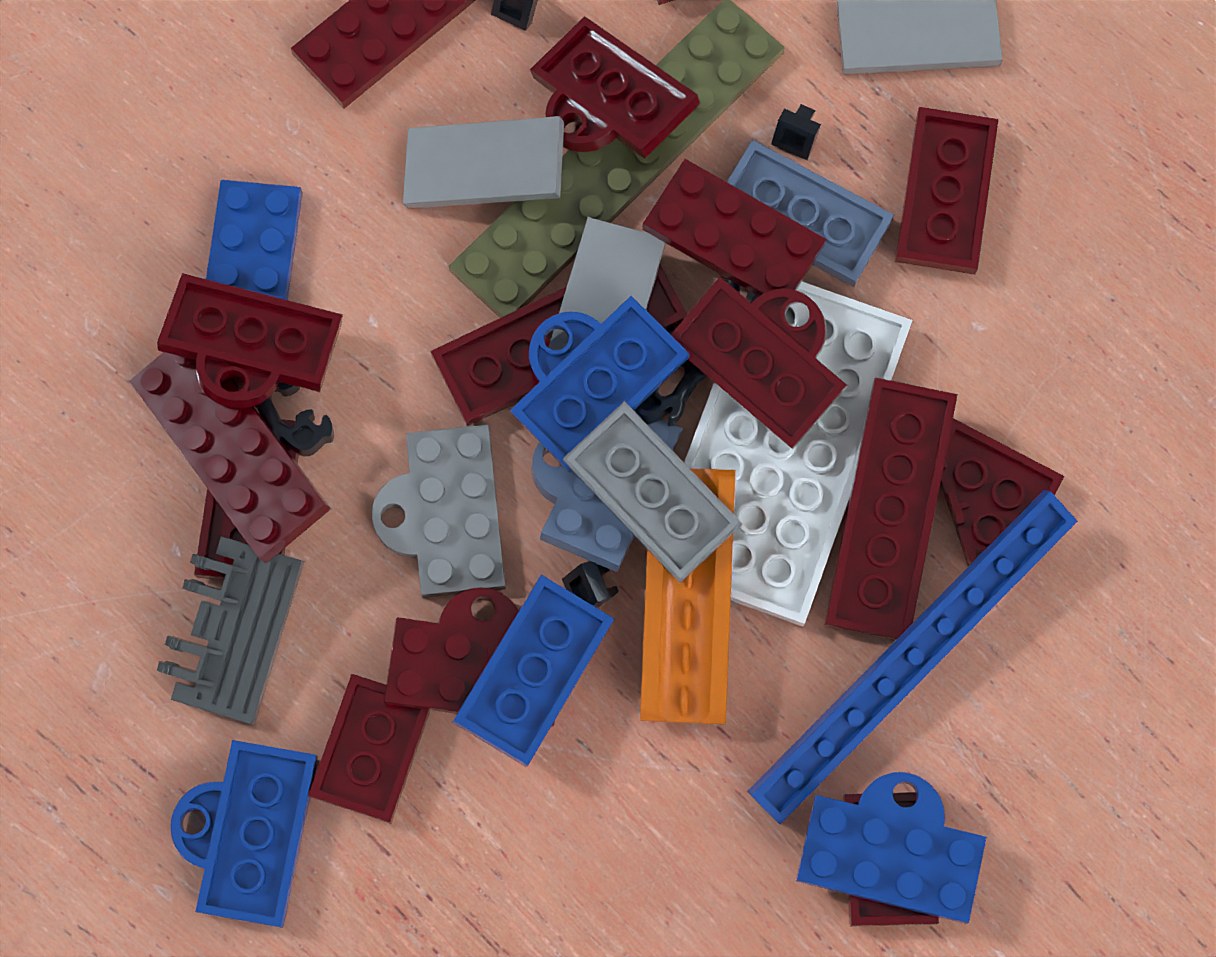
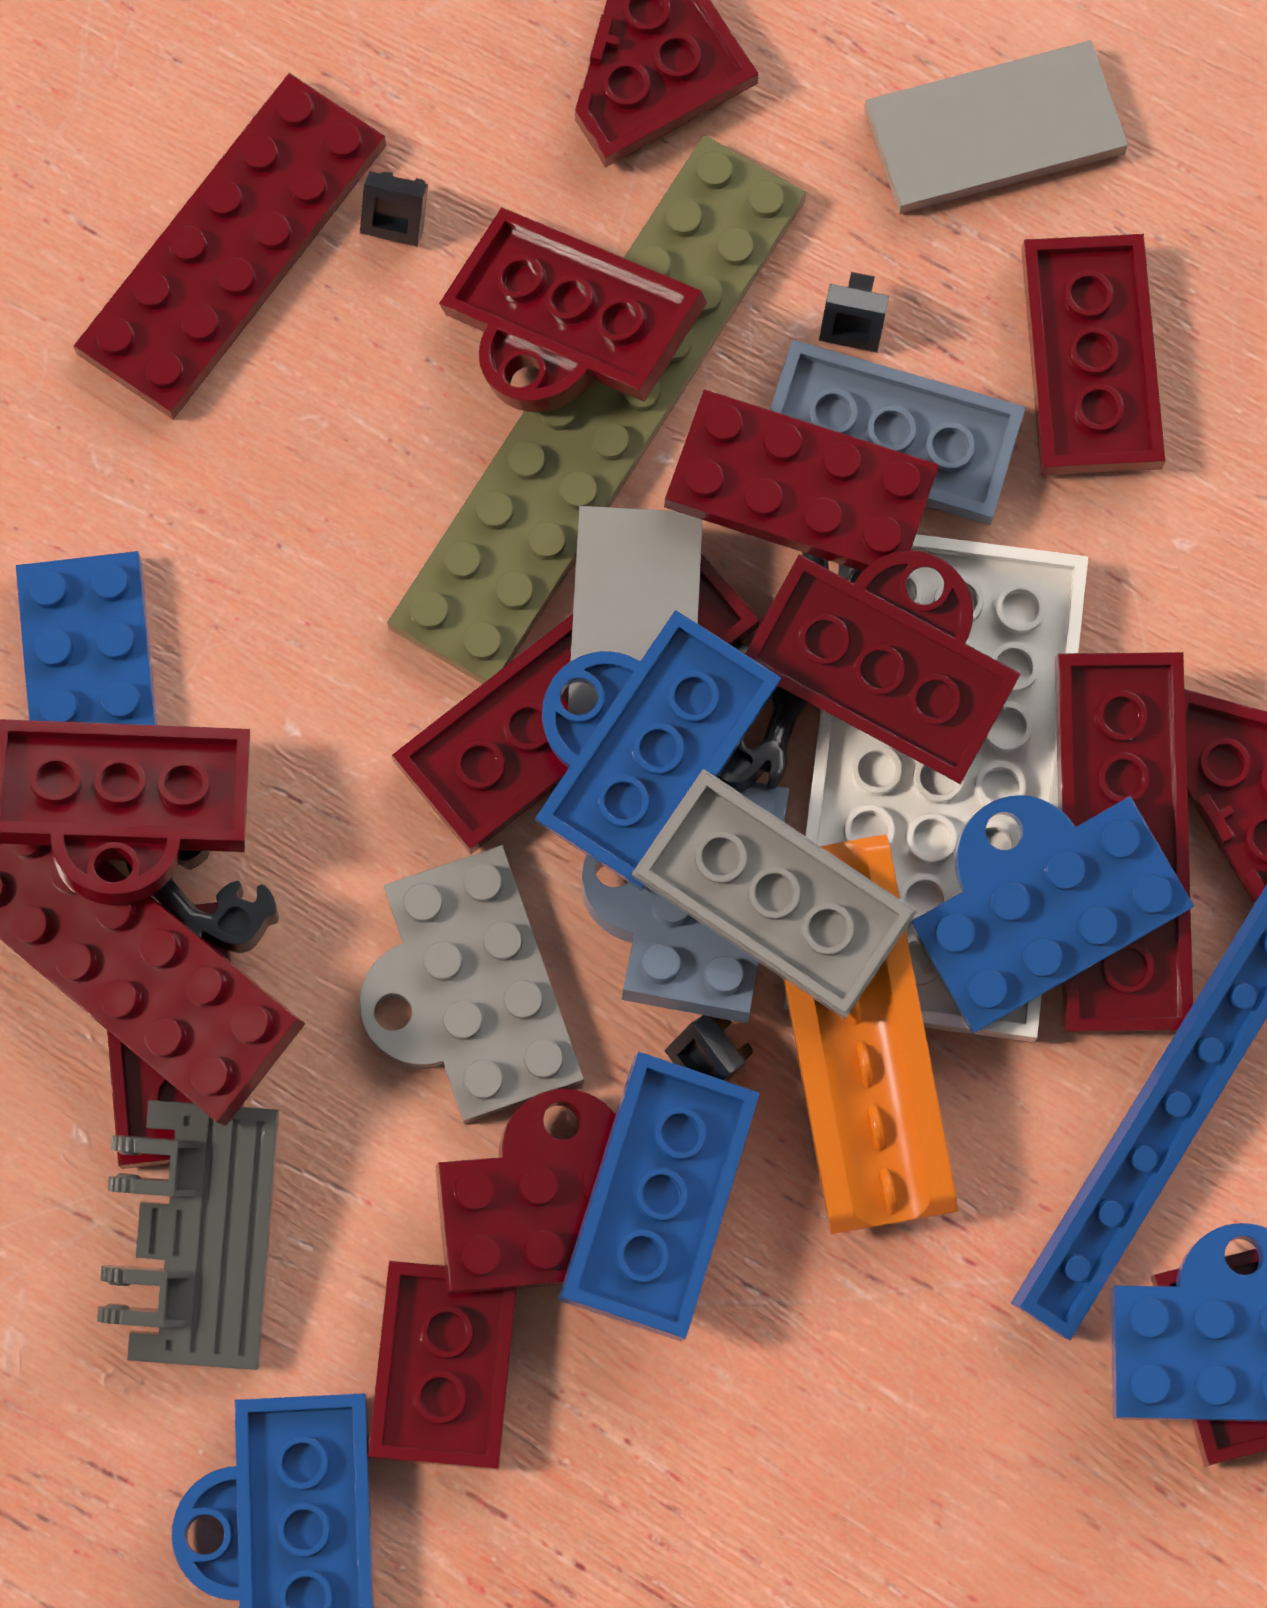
camera: 15 degrees left, 0 degrees up
(484, 162) = (405, 457): light grey tile -> none
(829, 537) = (1045, 904): none -> blue plate

